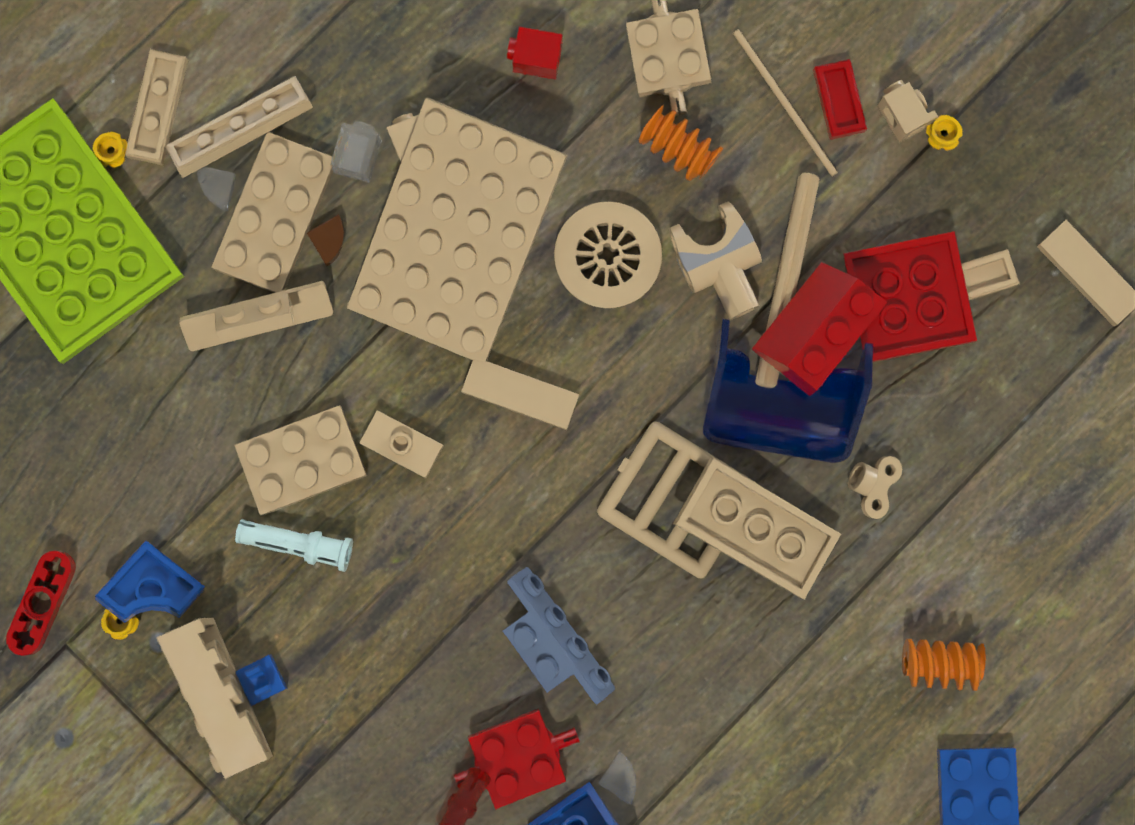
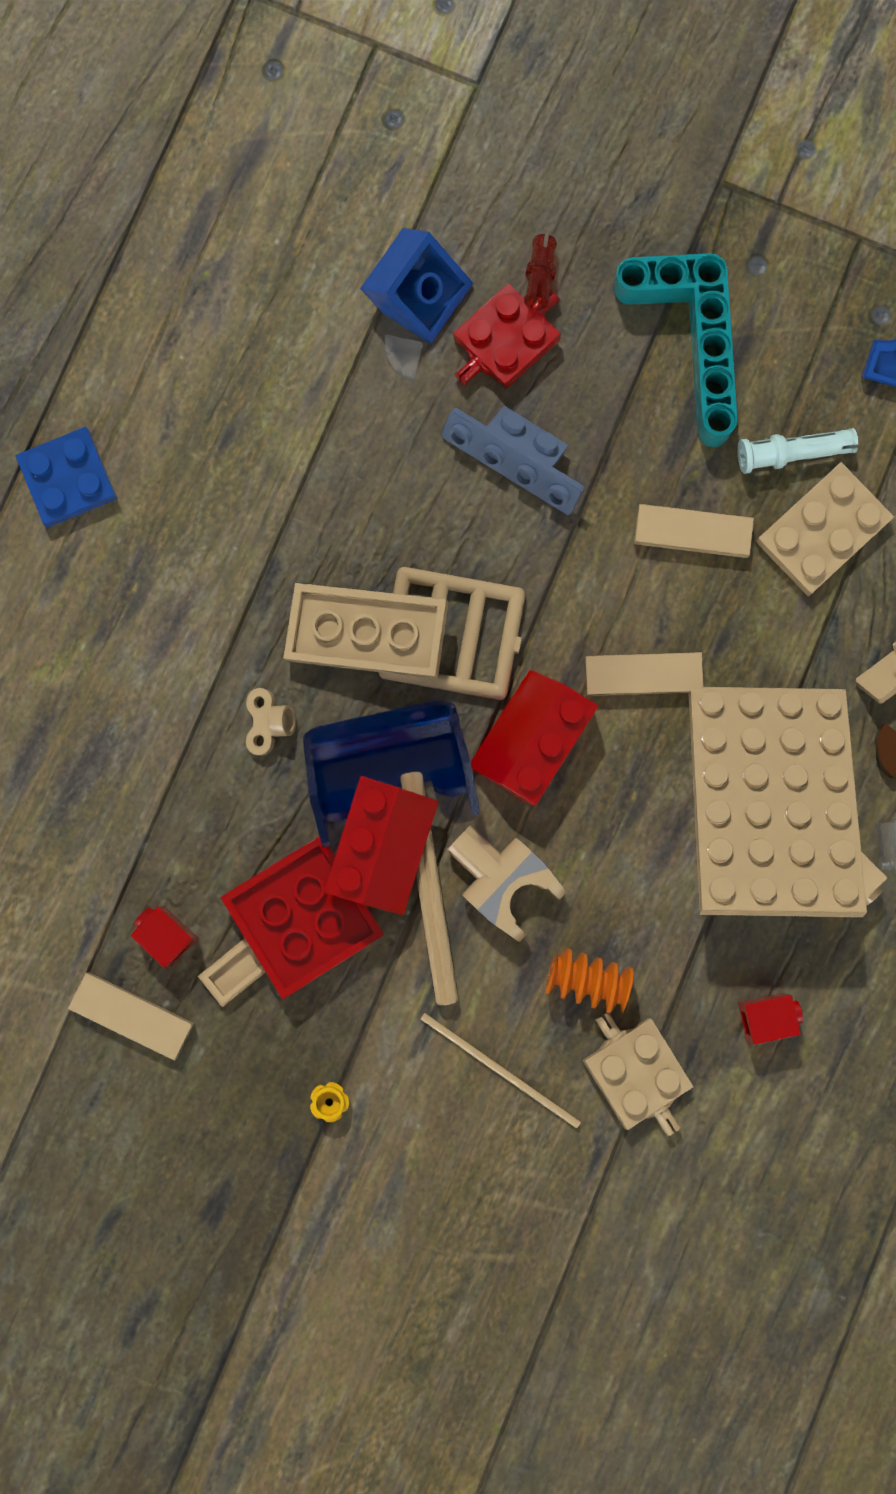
camera: 160 degrees right, 0 degrees up
(215, 696) = (810, 280): tan wedge -> none
(261, 679) = (772, 315): blue tile -> none
(335, 687) = (704, 331): none -> teal beam
(401, 444) = (736, 581): tan plate -> none
(420, 505) = (693, 531): none -> tan tile
(608, 215) = (655, 828): tan piece -> none
(644, 374) = (533, 737): none -> red slope
(839, 99) = (447, 1095): red tile -> none
(905, 110) = (377, 1109): tan brick -> none
(943, 663) = (138, 573): orange piece -> none
(1038, 329) = (162, 935): none -> red brick

